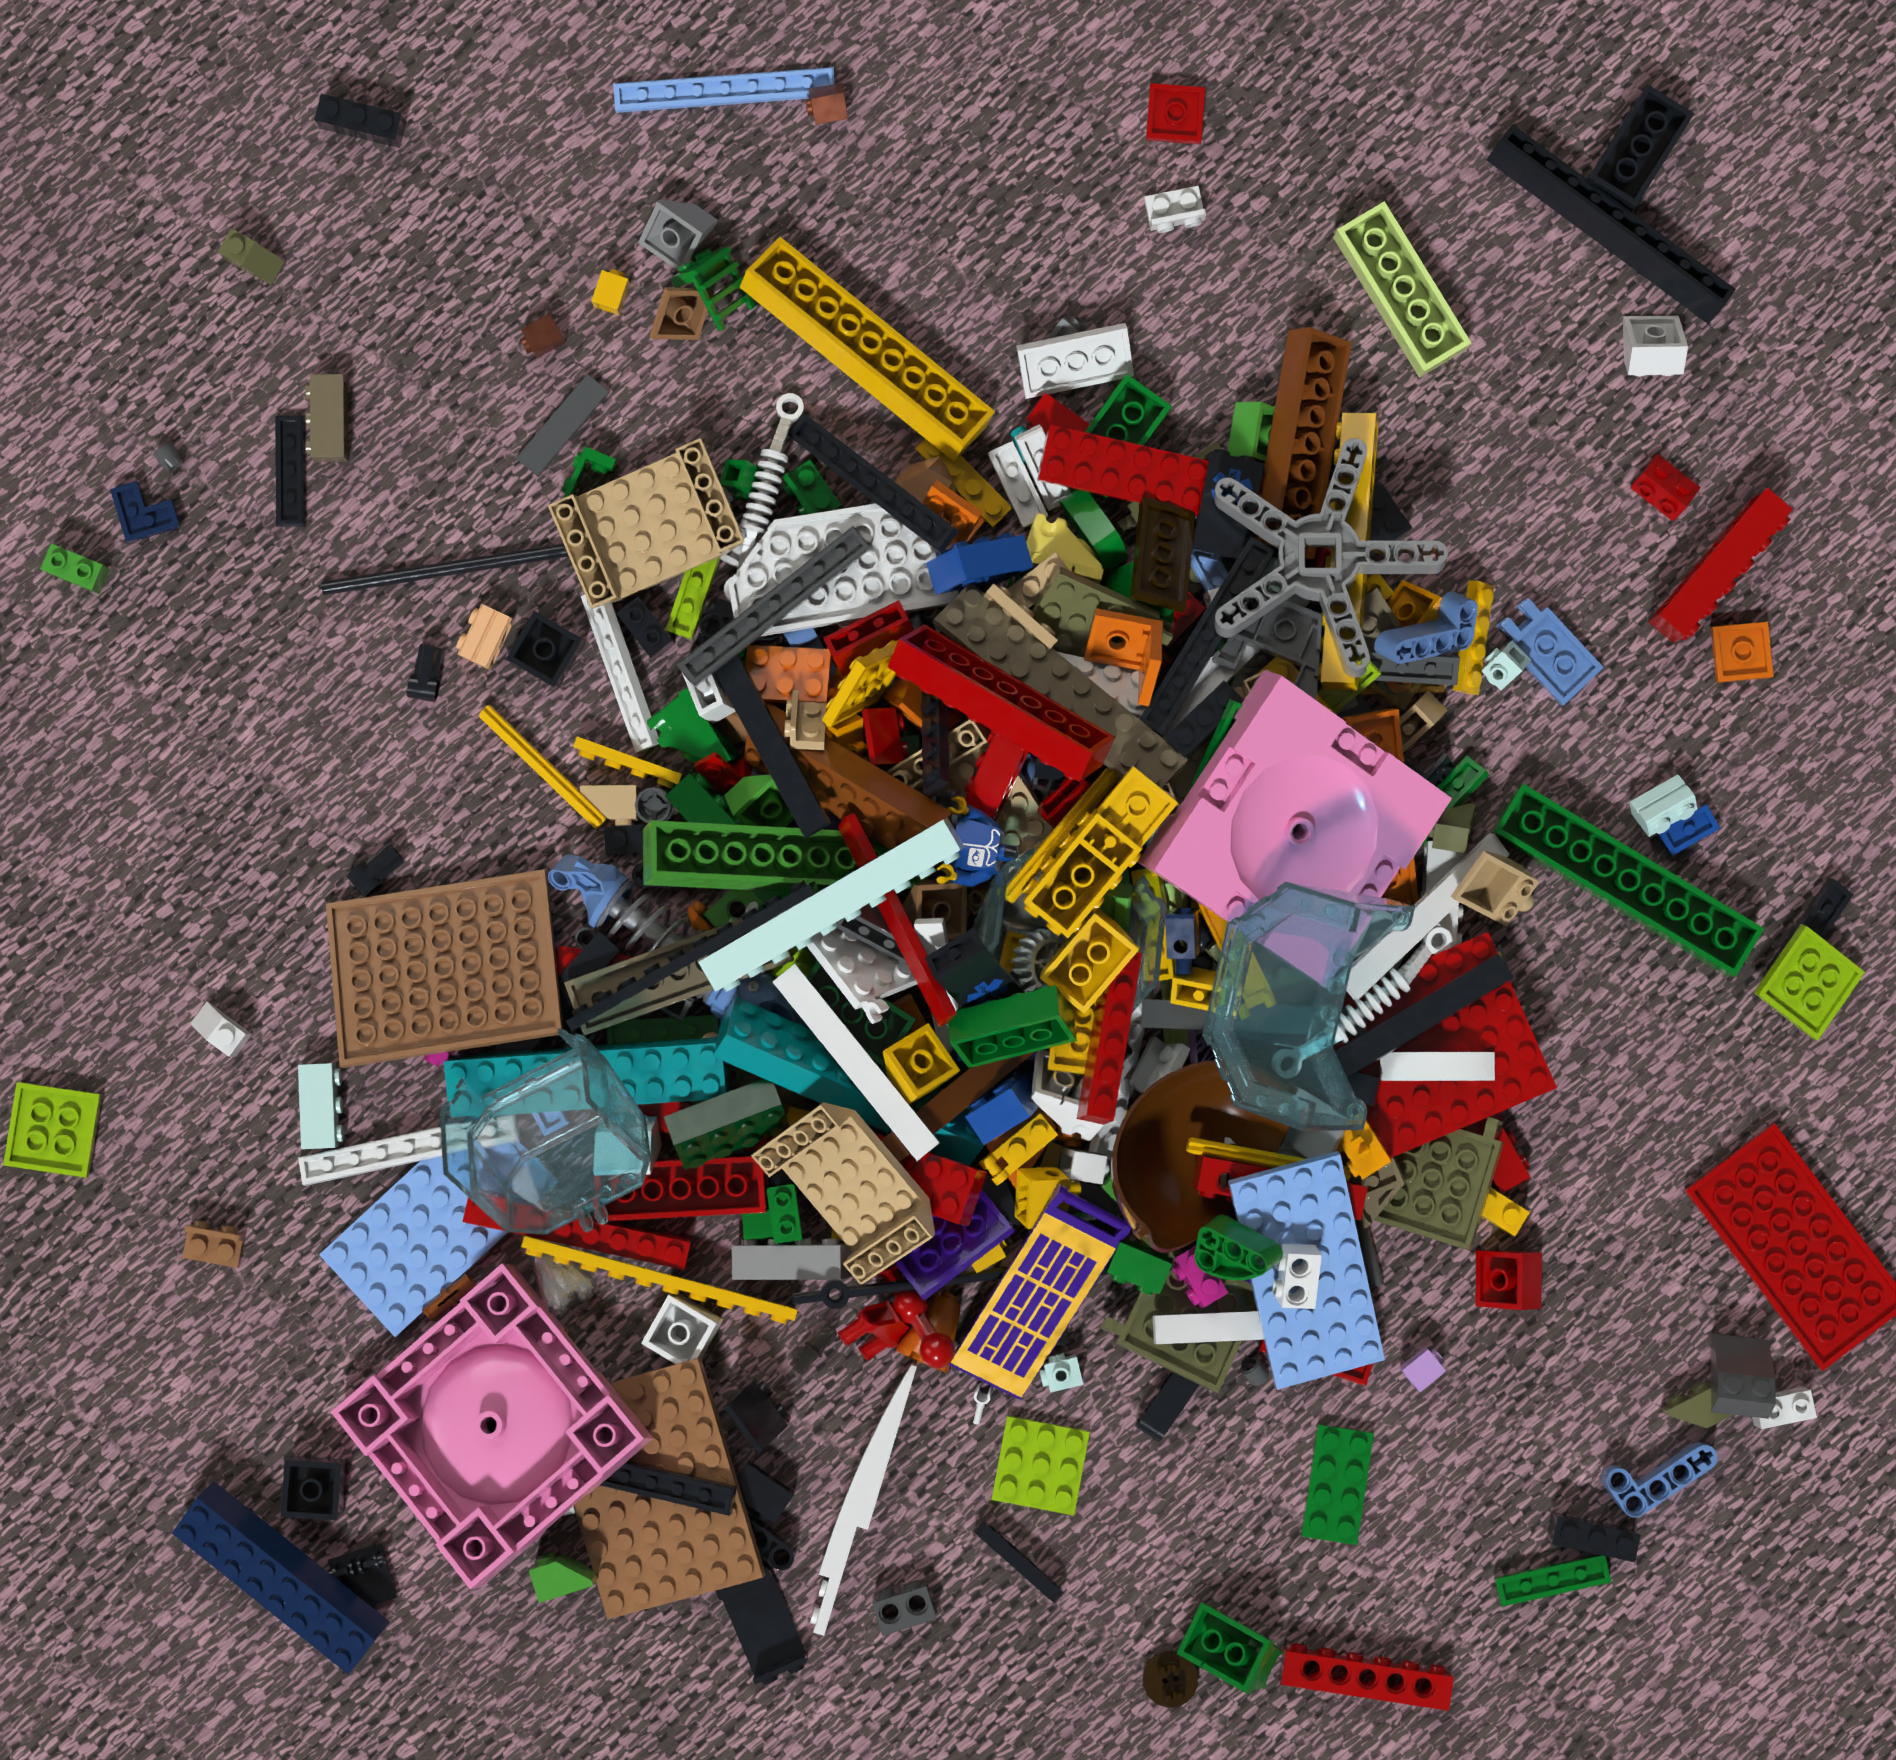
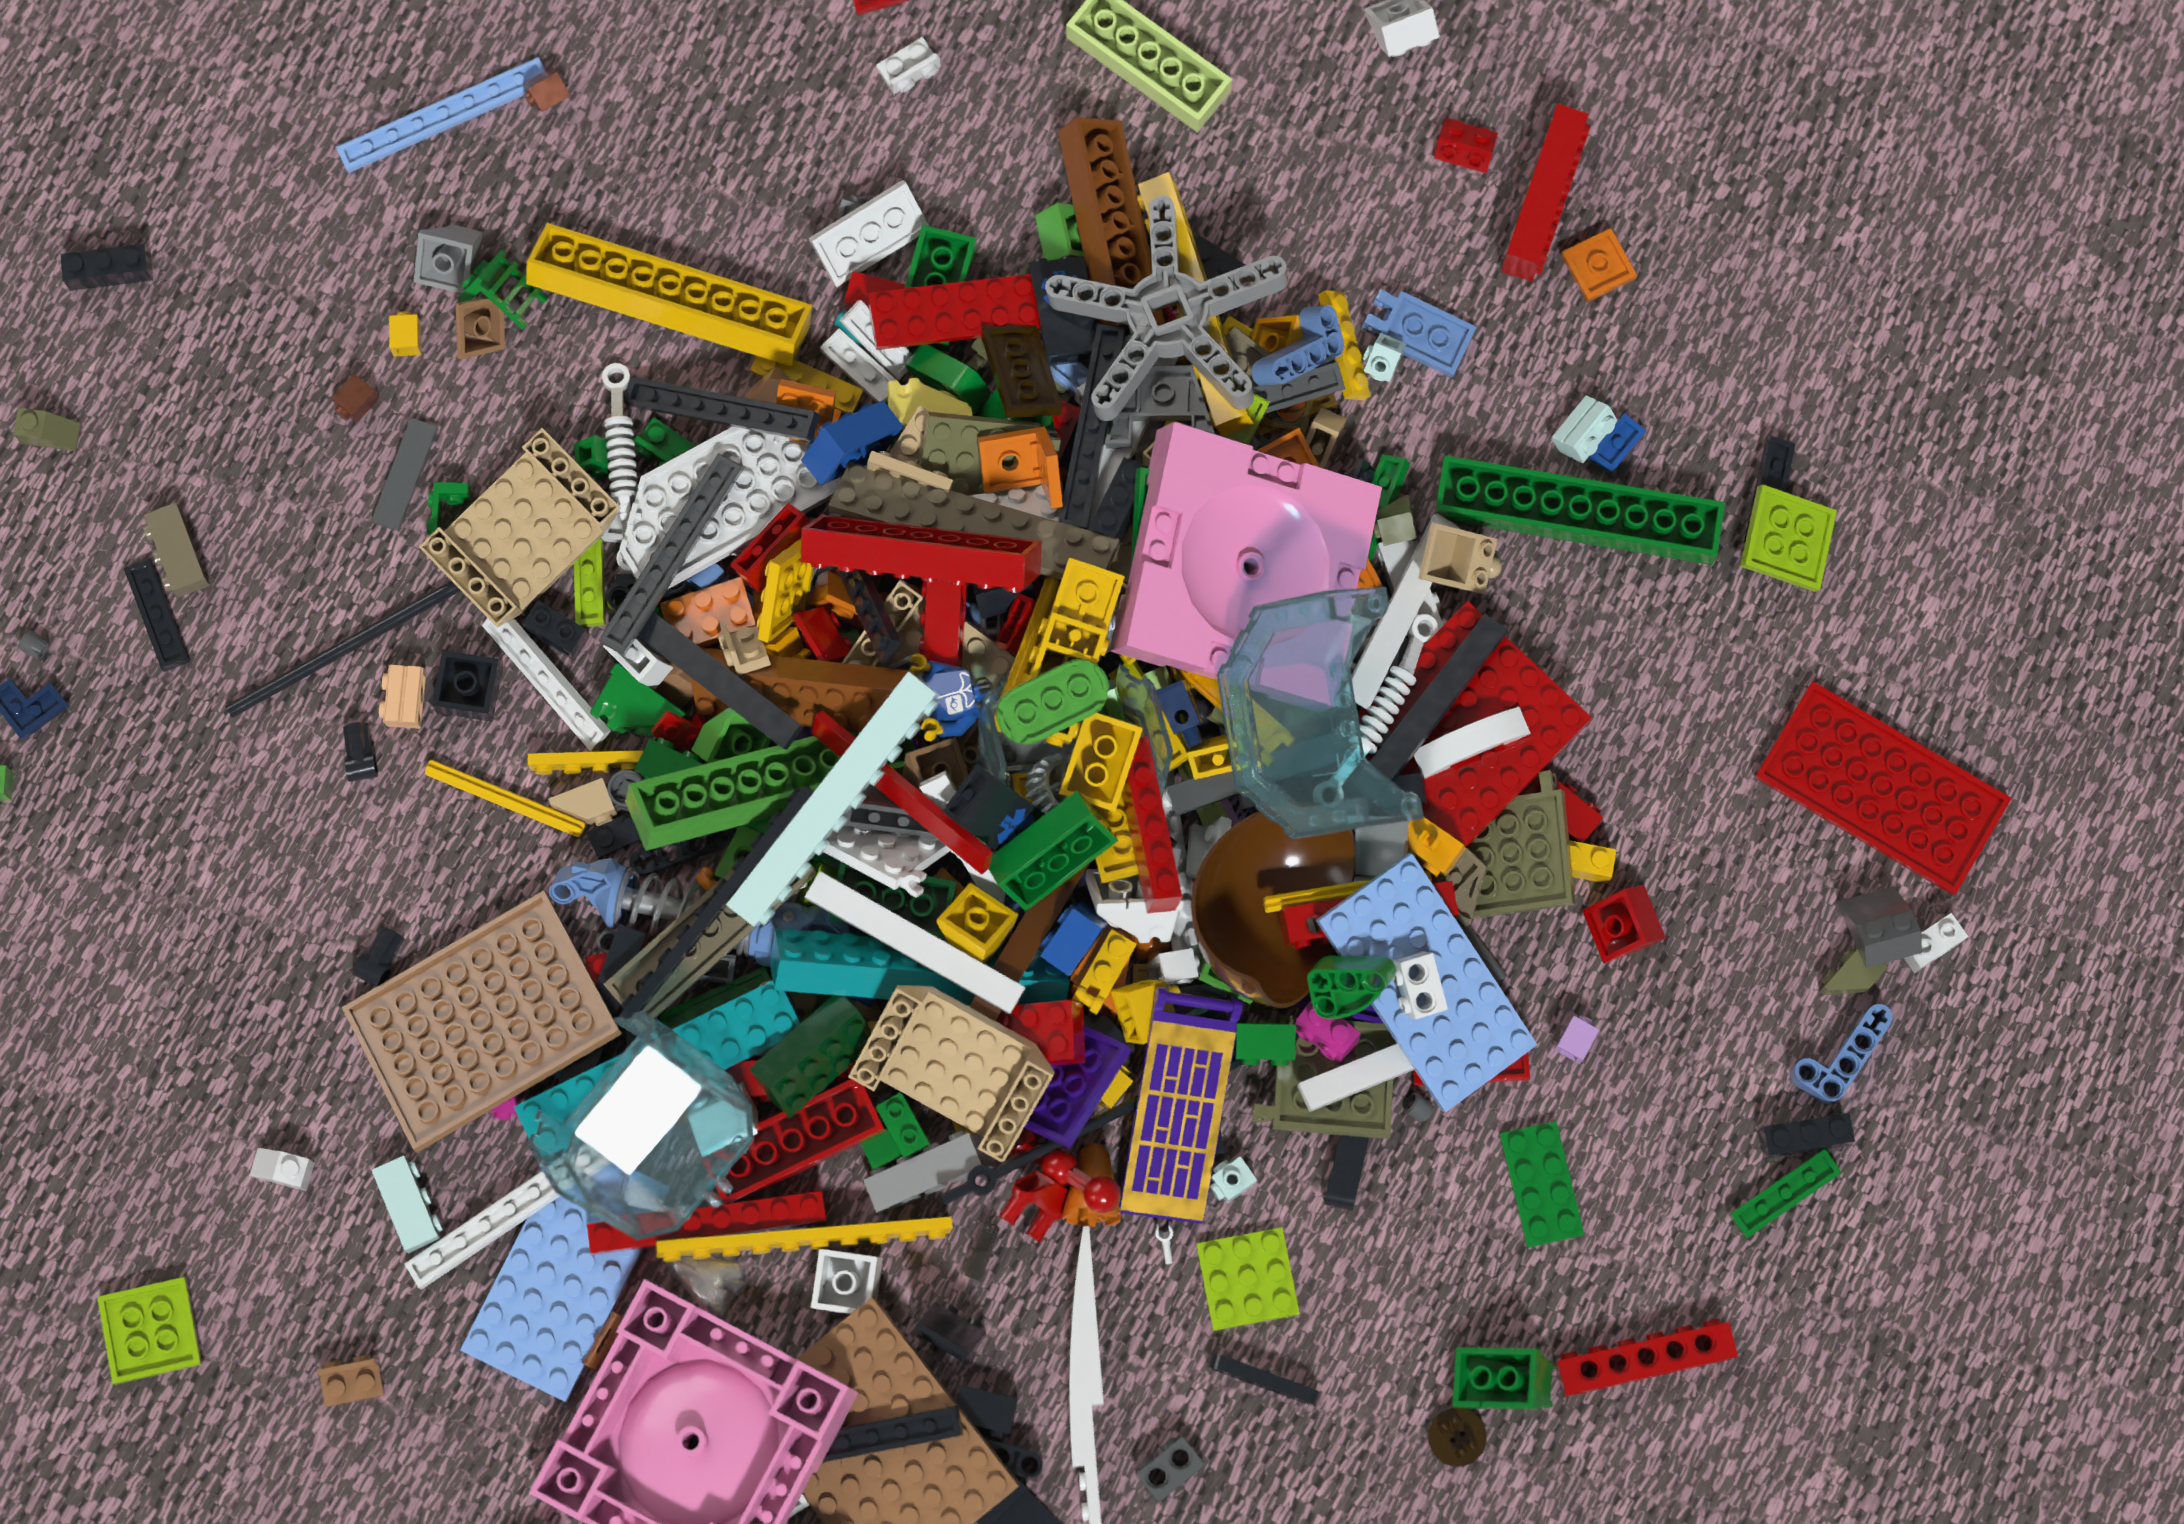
camera: 20 degrees left, 10 degrees down
(1065, 896) = (1052, 701): none -> bright green tile

